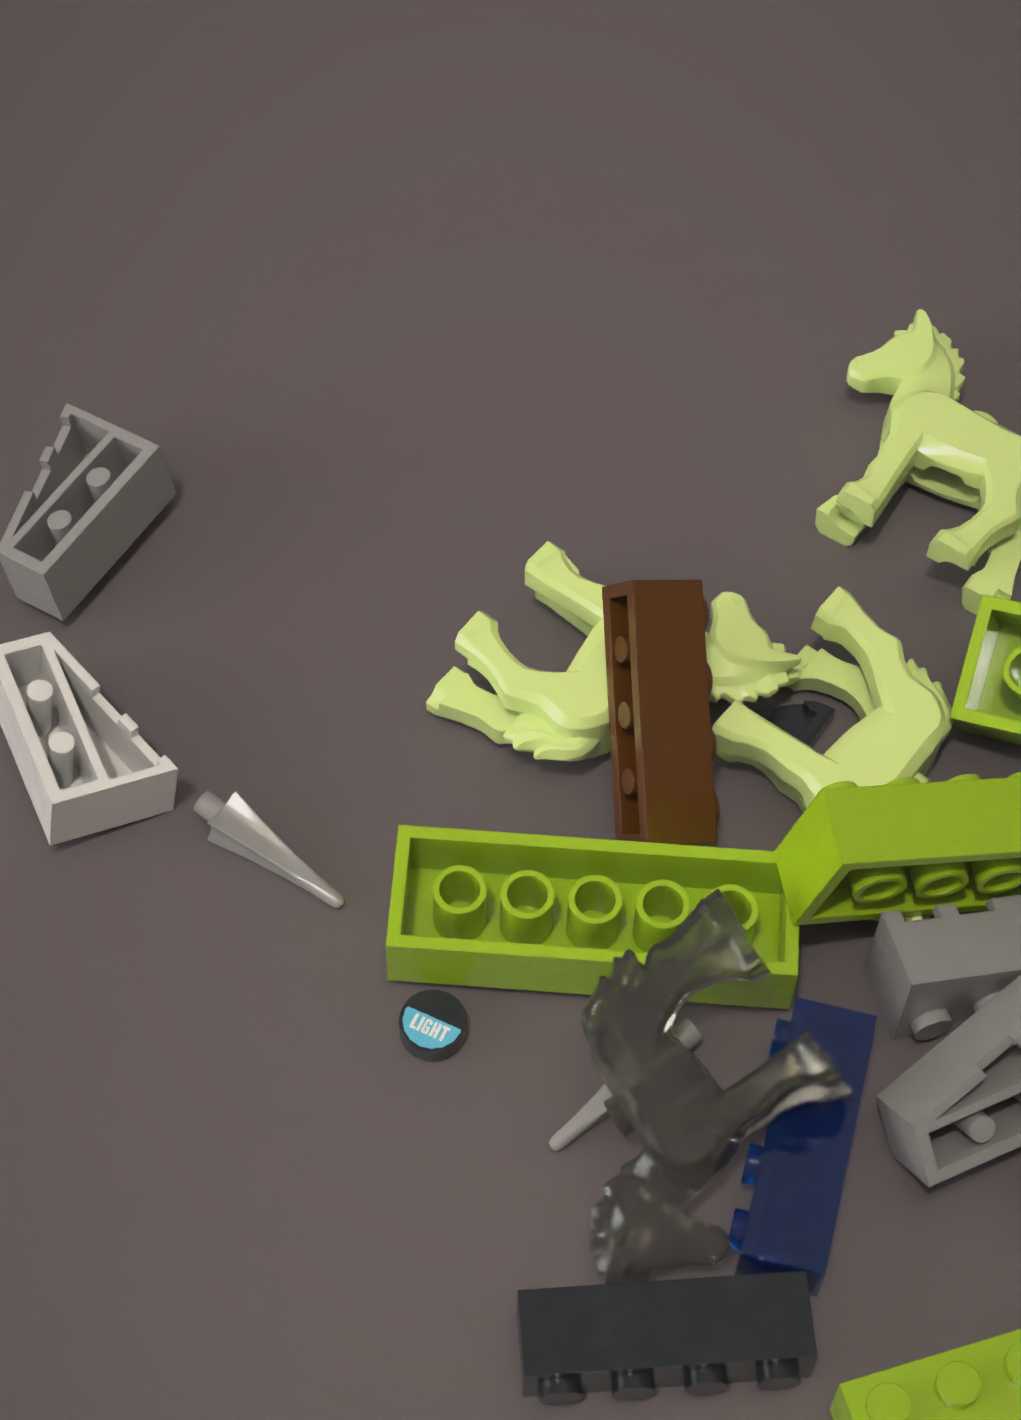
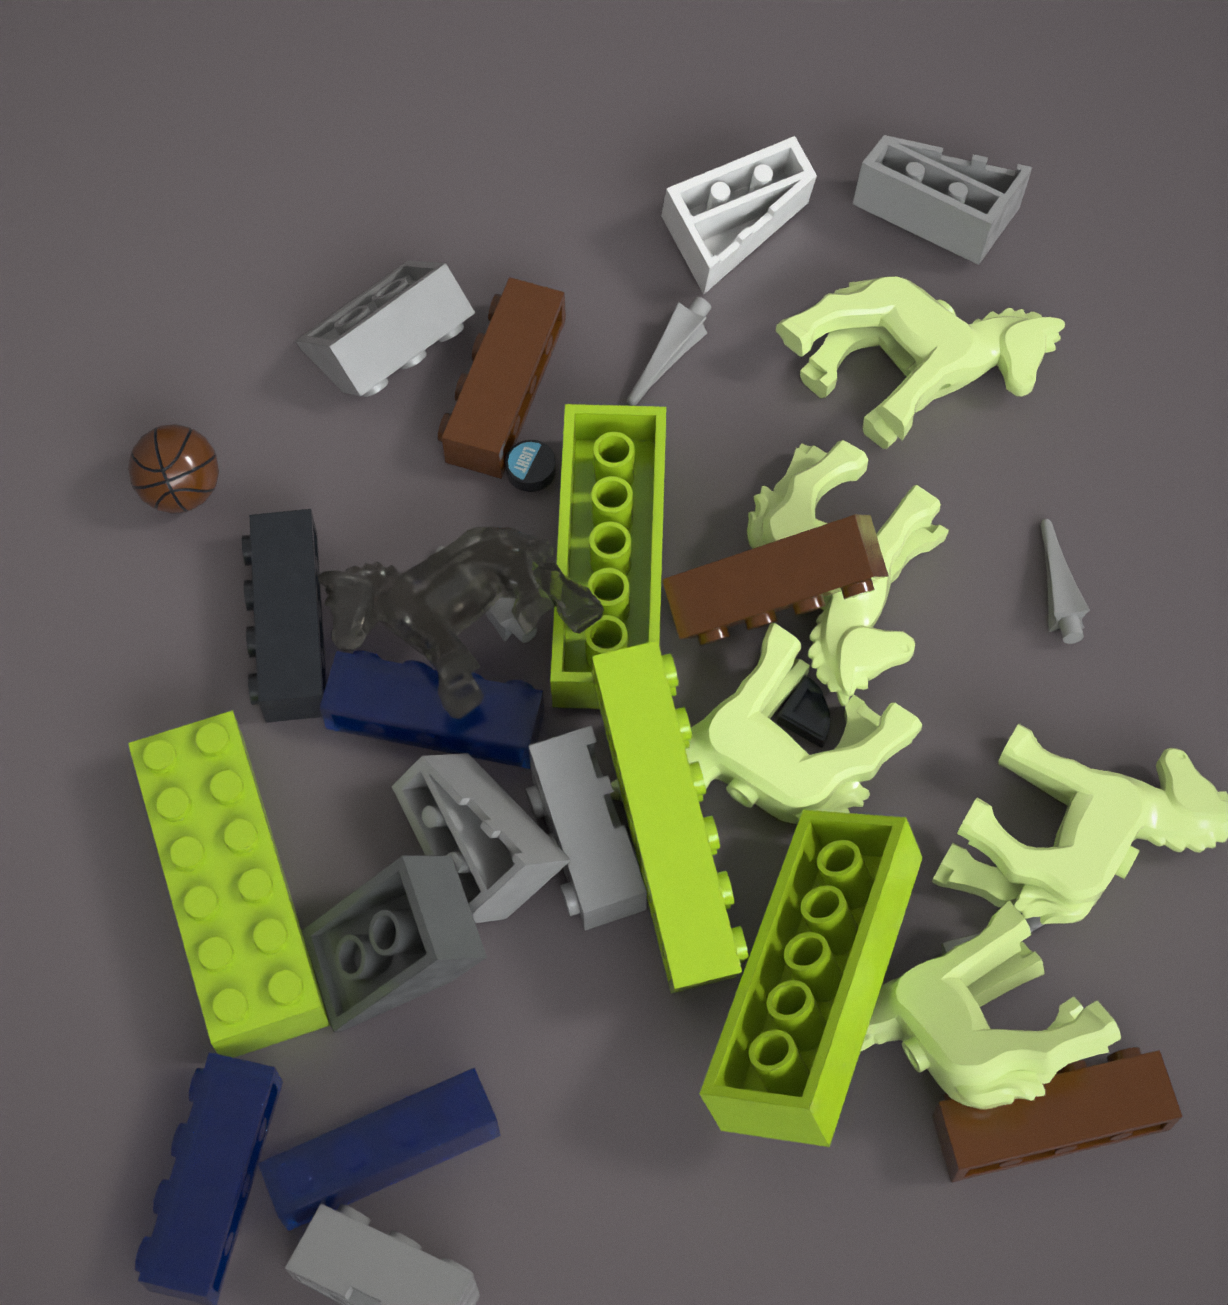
camera: 90 degrees right, 5 degrees up
(196, 1207) = (388, 327): none -> light grey slope
(299, 1048) = (503, 377): none -> reddish brown brick
(300, 551) = (922, 339): none -> yellowish green animal
(649, 457) = (1065, 600): none -> light grey piece

